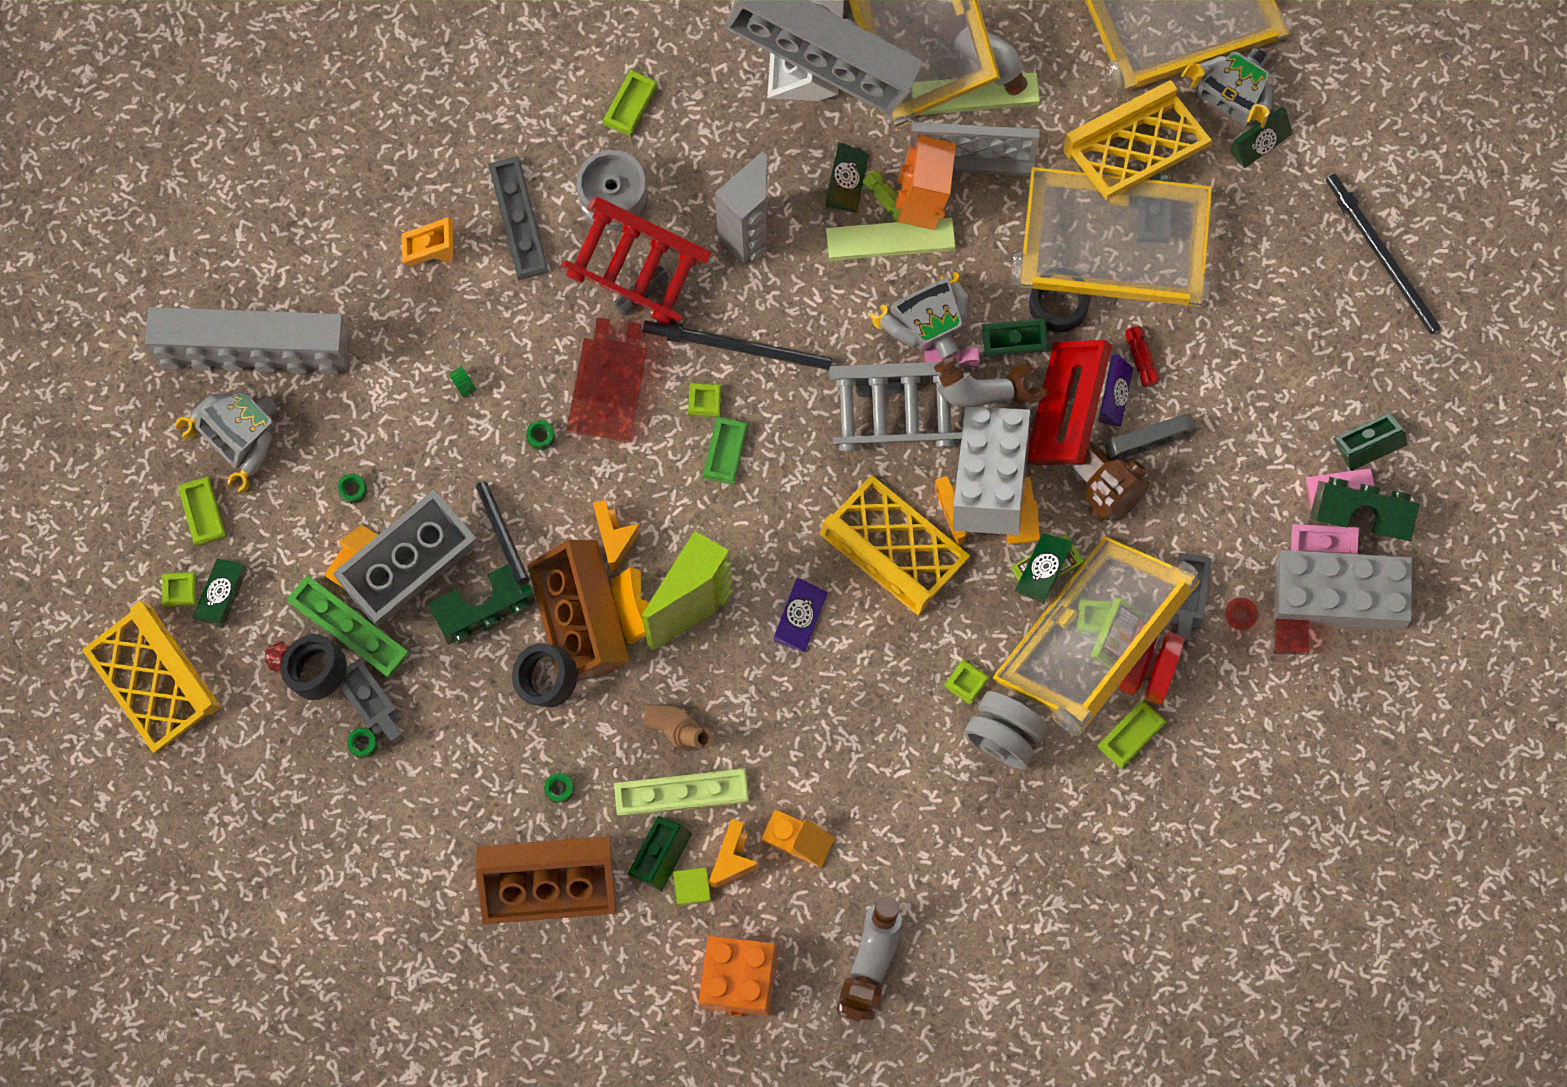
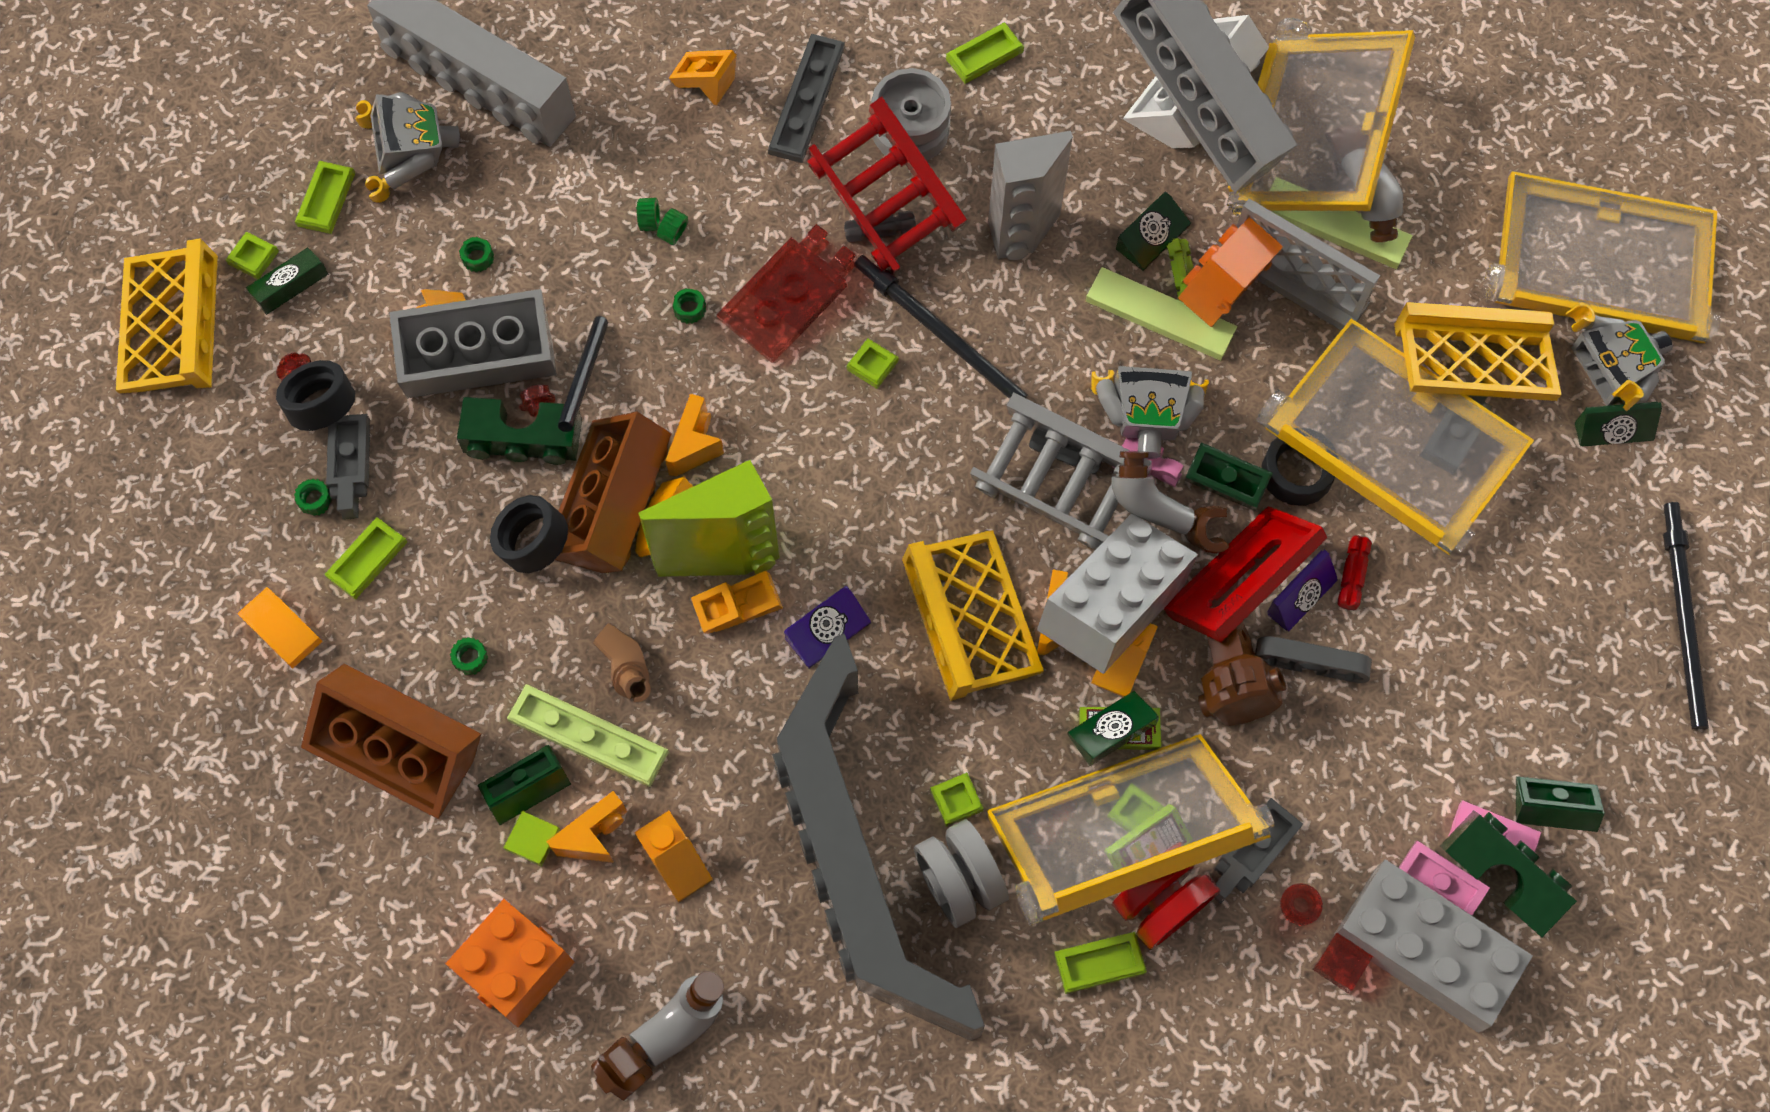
camera: 30 degrees right, 5 degrees down
(347, 627) = (378, 379): bright green plate -> none
(407, 850) = (279, 627): none -> light orange slope
(432, 763) = (366, 558): none -> lime tile
(477, 573) = (533, 396): none -> clear red plate
(487, 380) = (672, 226): none -> green axle
(723, 636) = (735, 604): none -> light orange slope
(725, 450) = (860, 423): bright green tile -> none
(925, 772) = (843, 863): none -> dark grey slope

